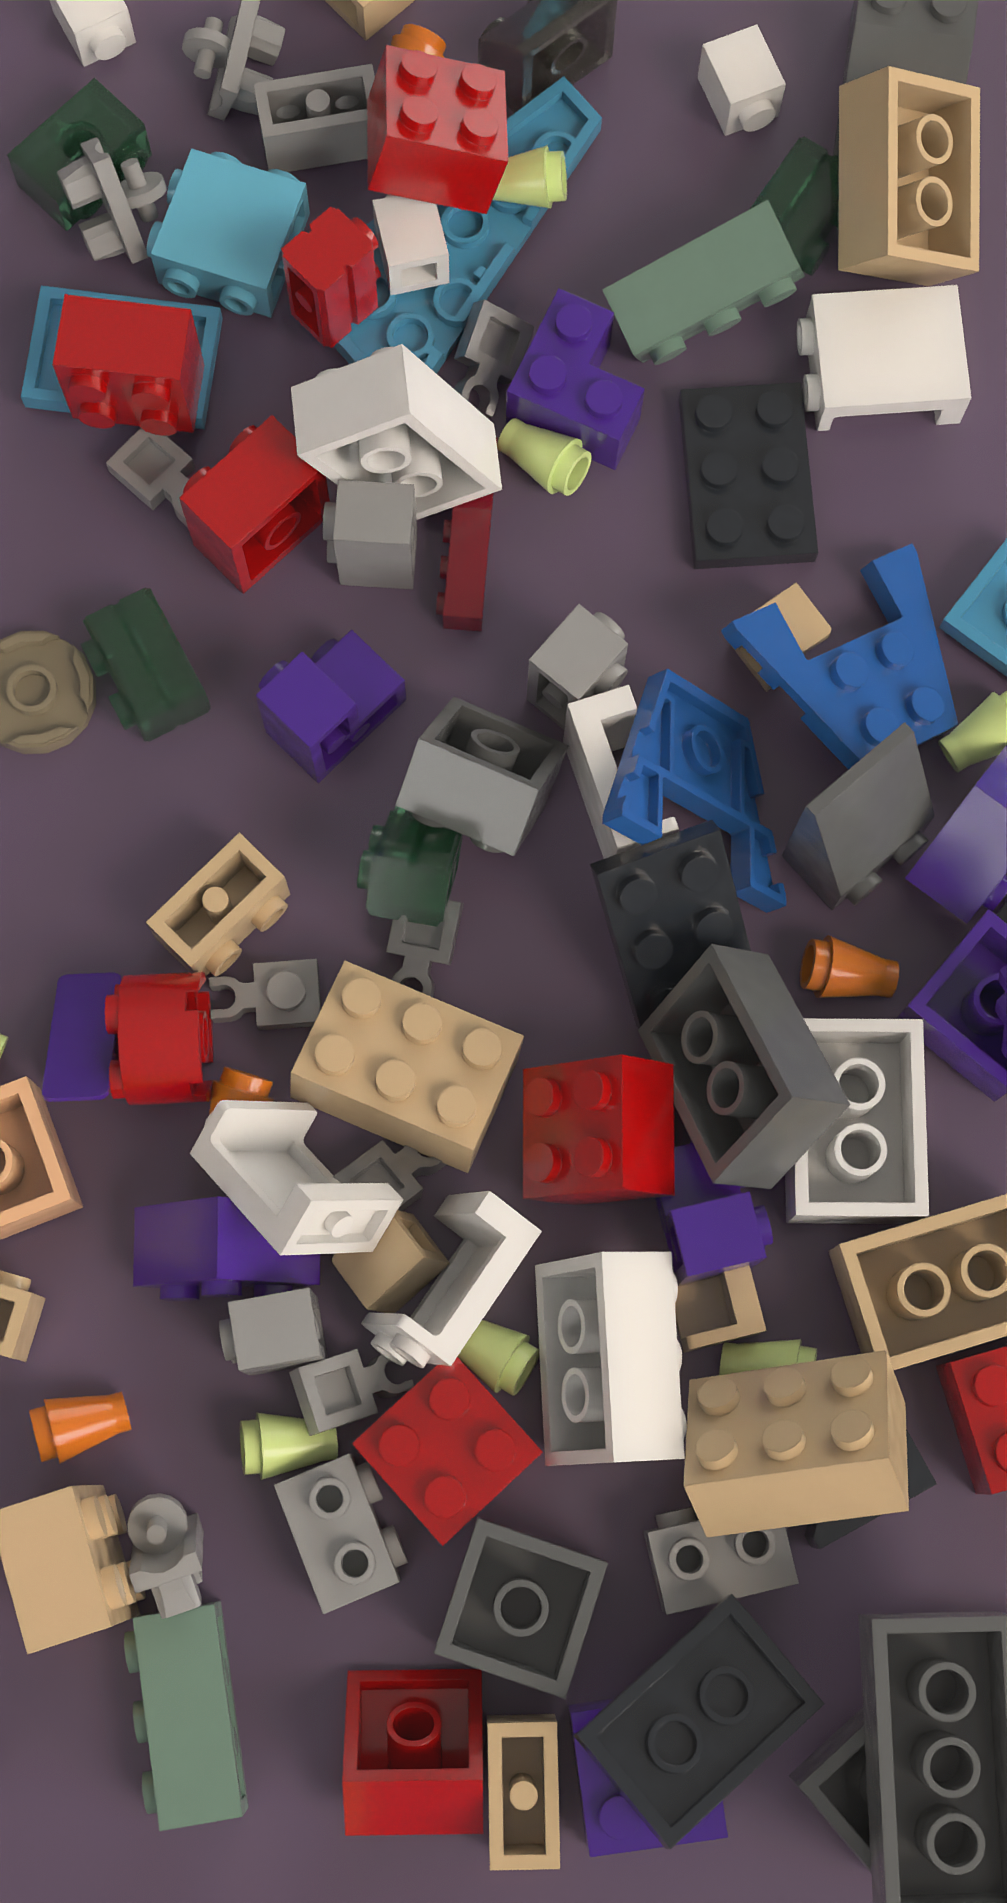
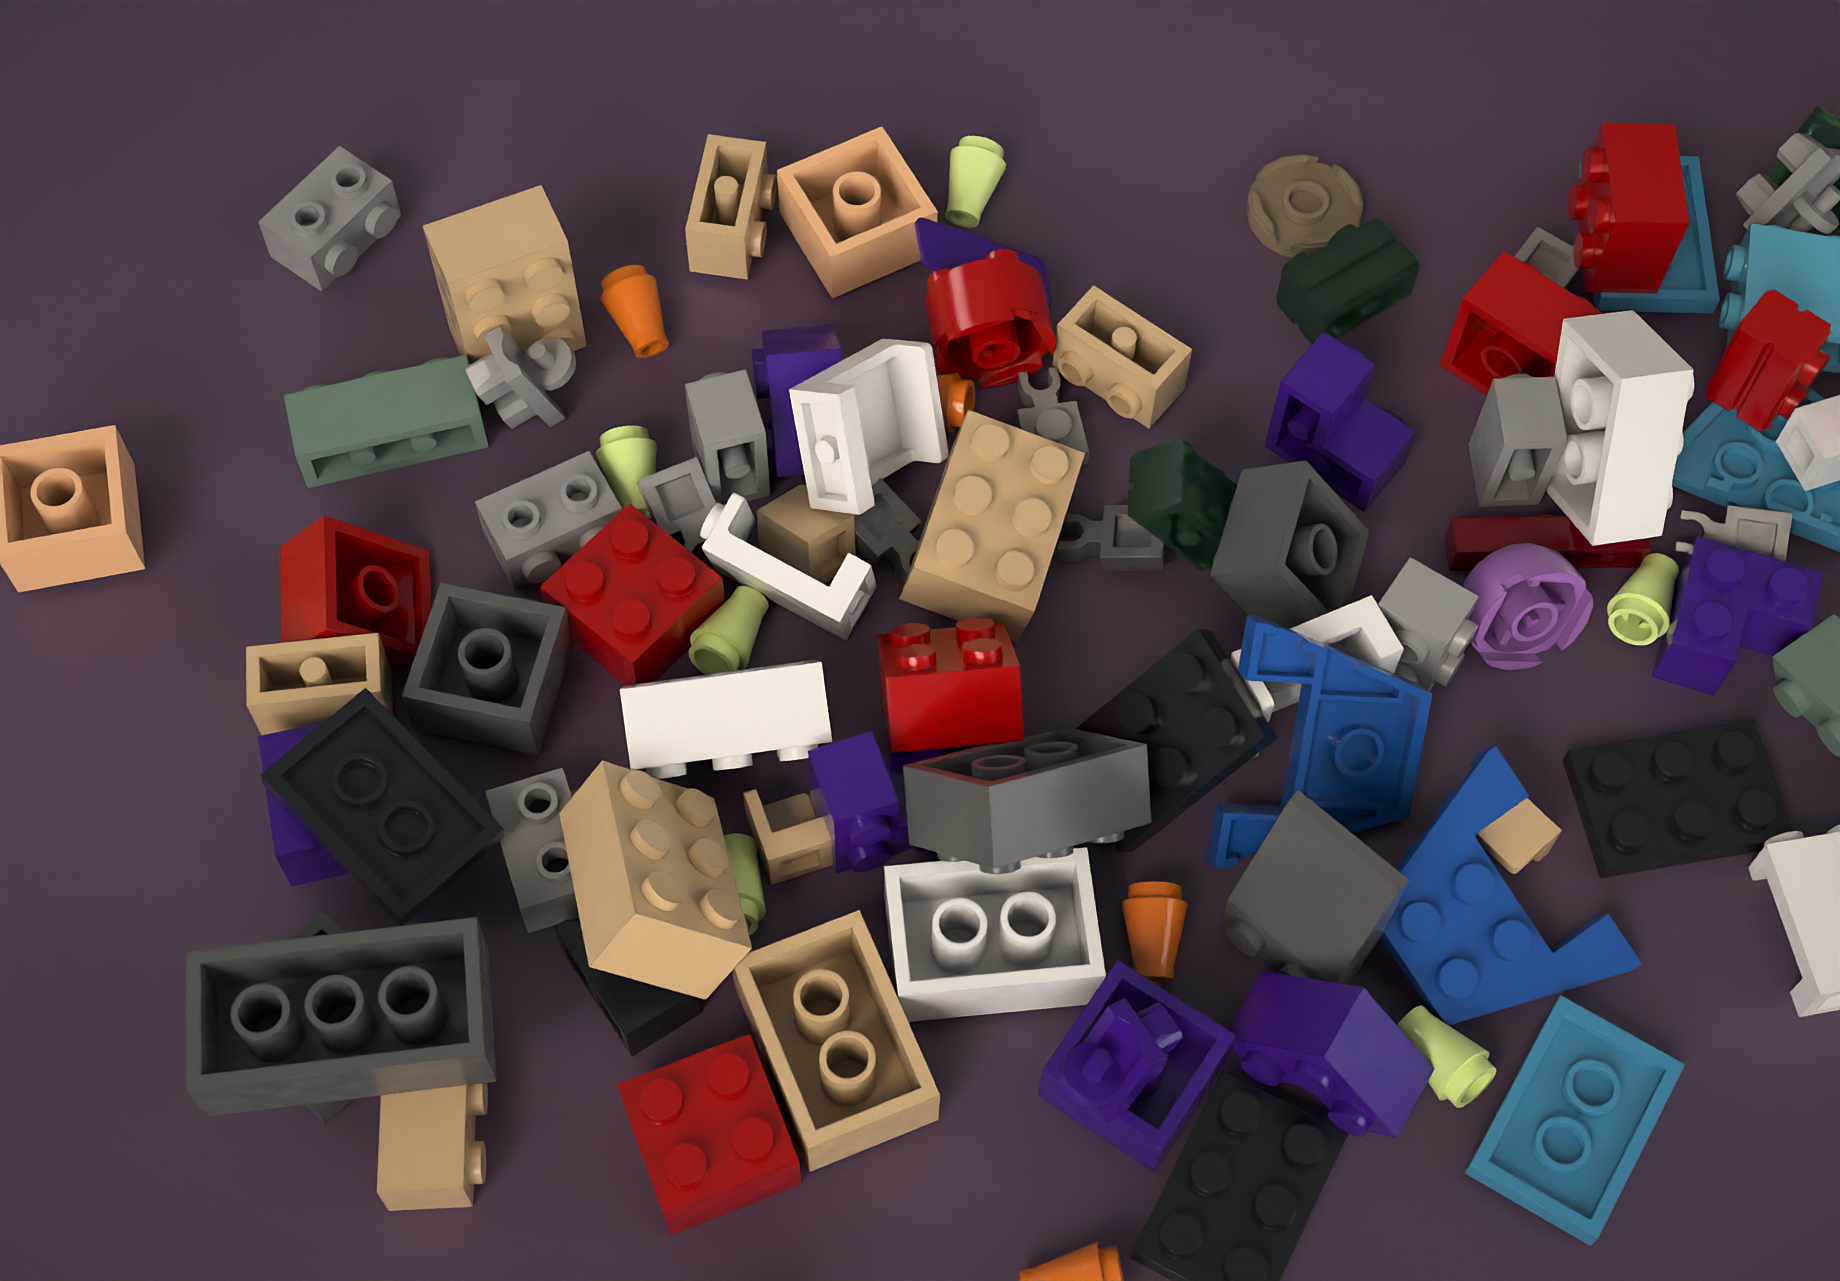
camera: 85 degrees right, 15 degrees down
(542, 568) = (1526, 605): none -> medium lavender cylinder

